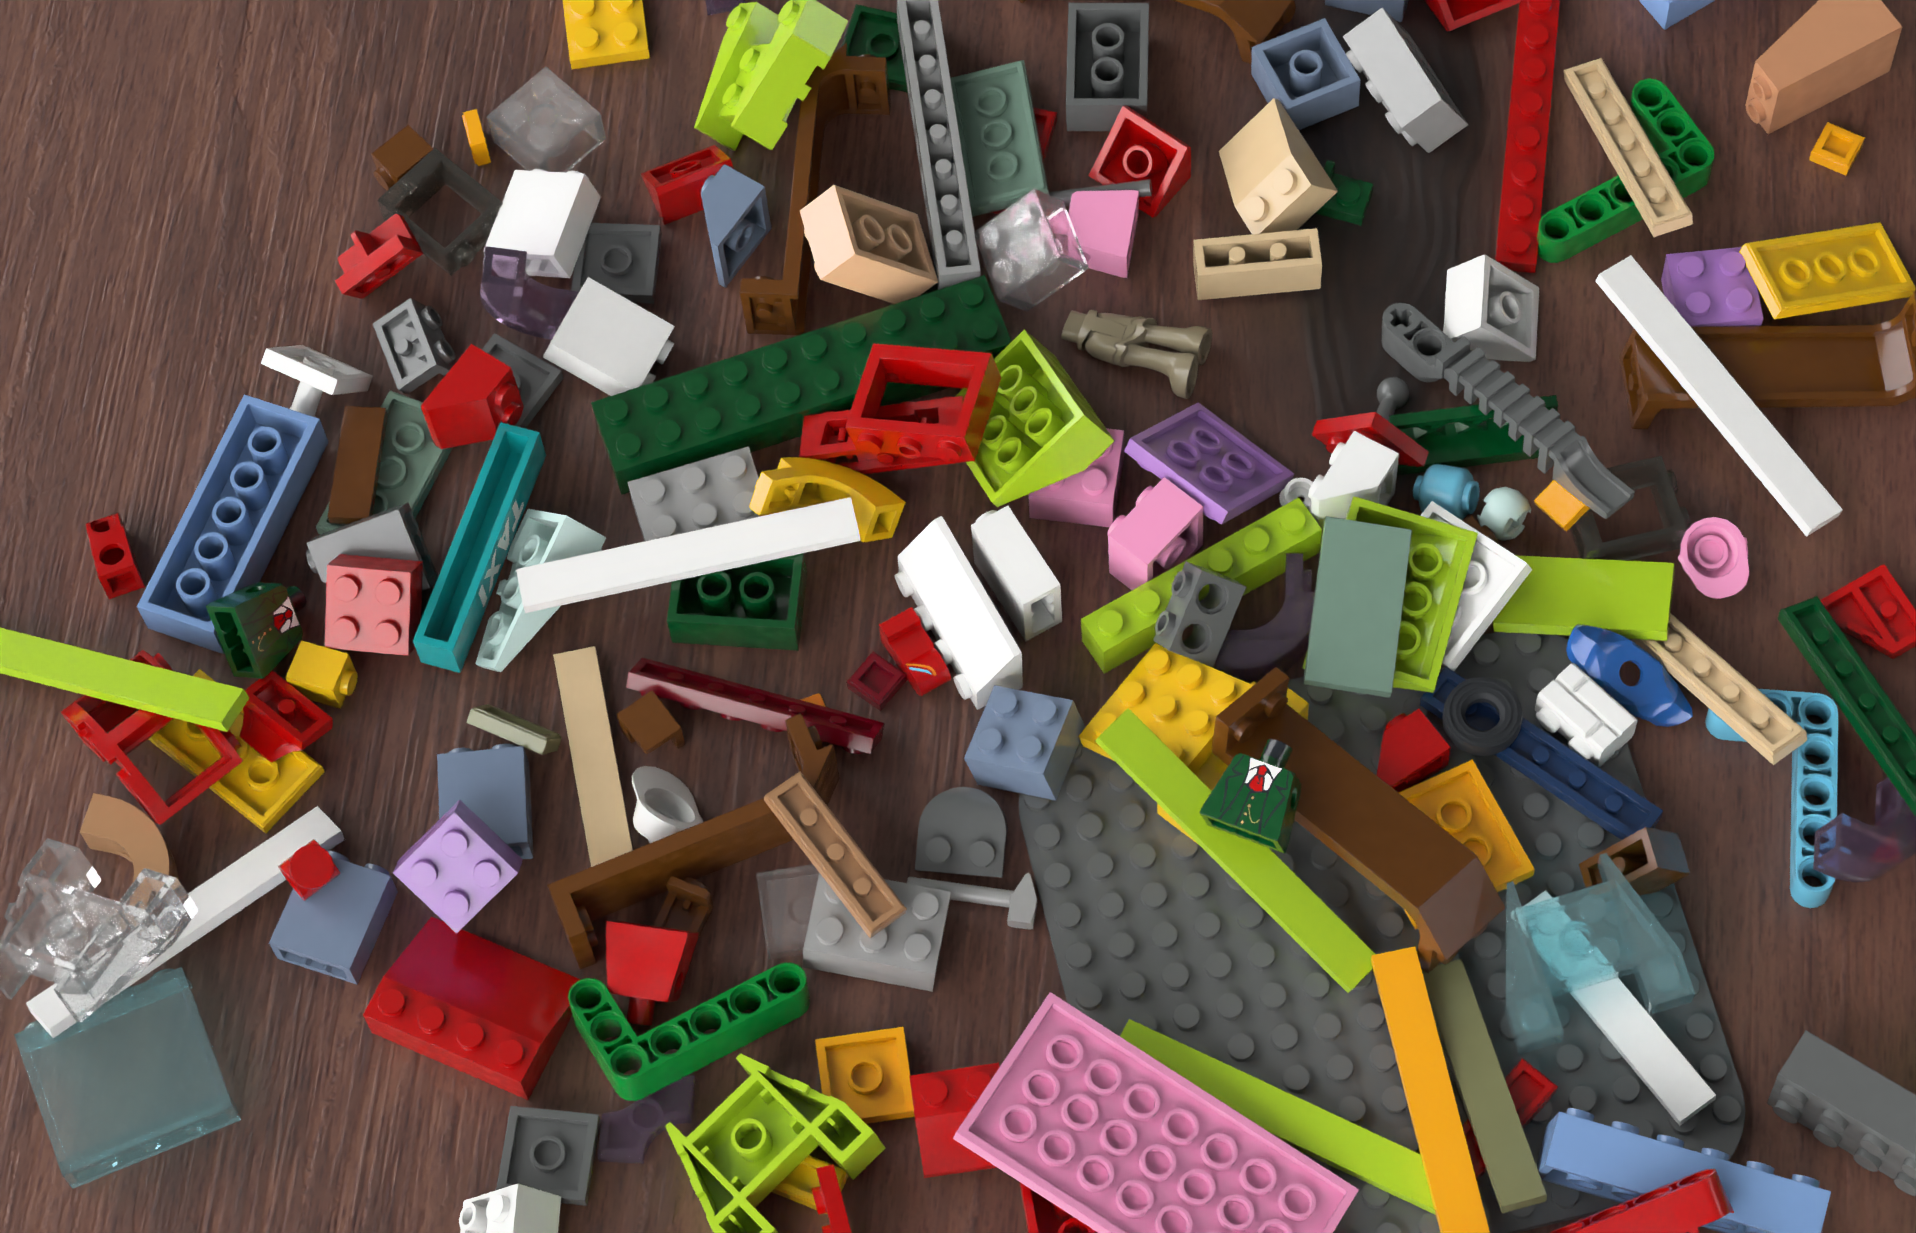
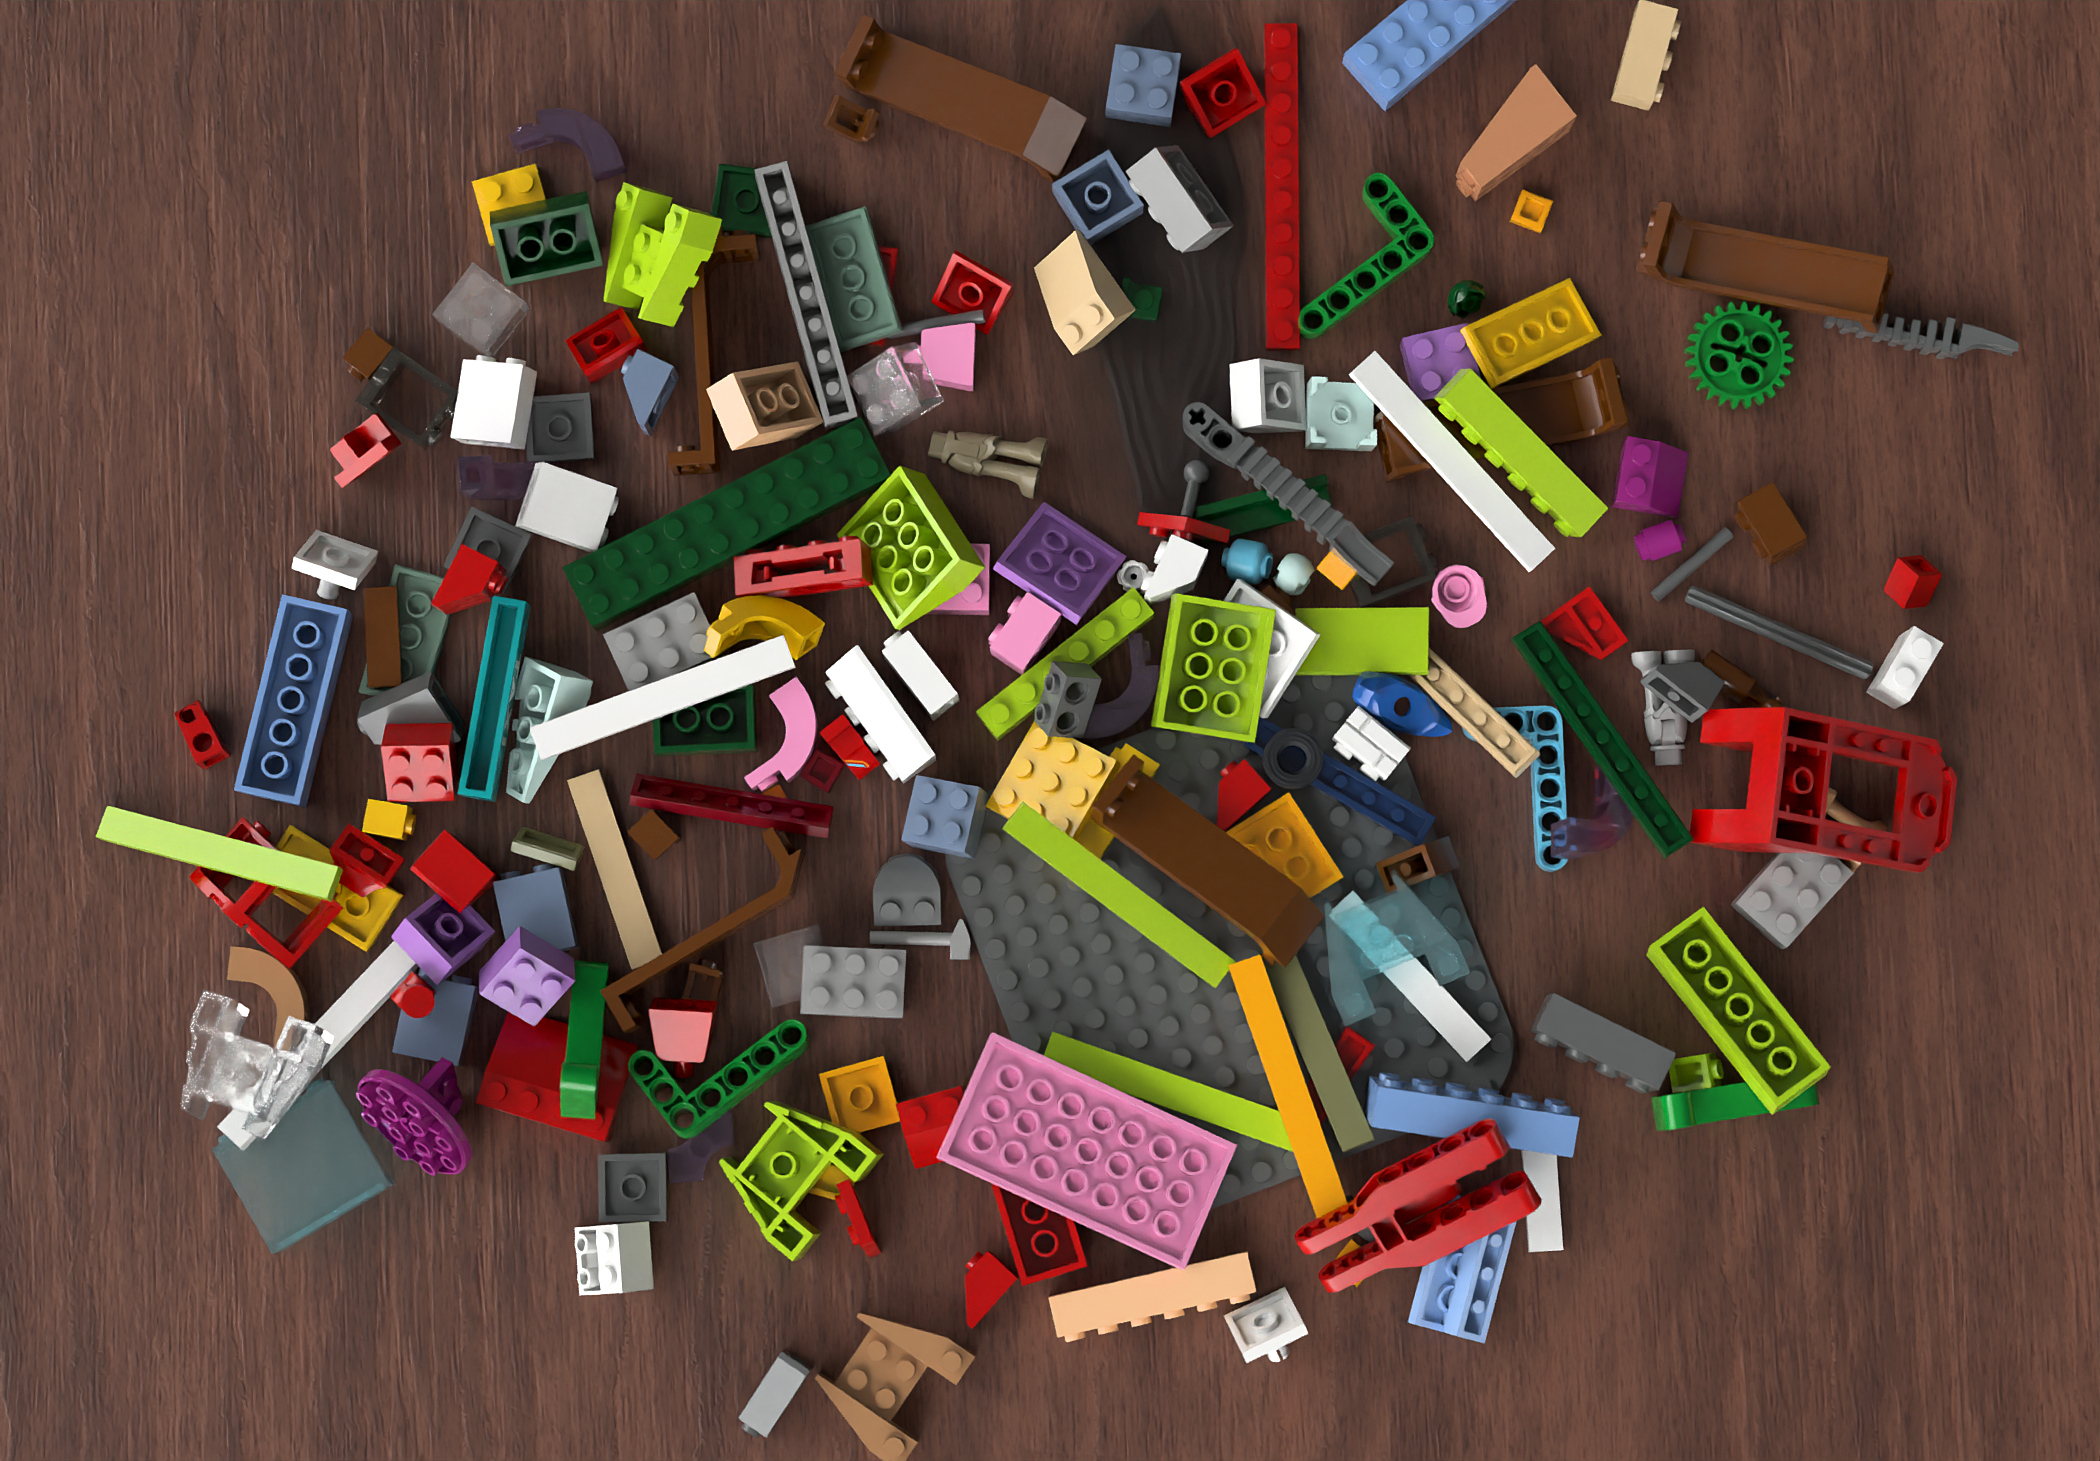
camera: 10 degrees left, 20 degrees up
(257, 626) = (332, 790): dark green torso -> none
(284, 1017) = (418, 1116): none -> magenta bracket
(362, 807) = (441, 937): none -> medium lavender brick
(392, 733) = (454, 871): none -> red slope
(414, 344) = (408, 522): dark grey bracket -> none
(476, 137) = (424, 326): light orange tile -> none
(508, 968) = (584, 1041): none -> green beam
(637, 51) = (546, 238): none -> dark green brick
(662, 804) = (676, 900): white piece -> none
(835, 854) = (815, 939): medium nougat tile -> none
(851, 641) = (799, 740): none -> bright pink arch
(924, 367) = (825, 588): red window -> none
(1106, 63) = (935, 206): dark grey brick -> none
(1256, 798) = (1131, 865): dark green torso -> none
(1257, 264) = (1077, 377): tan brick -> none
(1357, 607) = (1189, 686): sand green tile -> none
(1579, 343) = (1338, 416): none -> light aqua panel
(1628, 147) = (1364, 239): tan tile -> none
(1748, 226) = (1465, 298): none -> dark green plate
(1806, 395) = (1520, 453): none -> lime brick

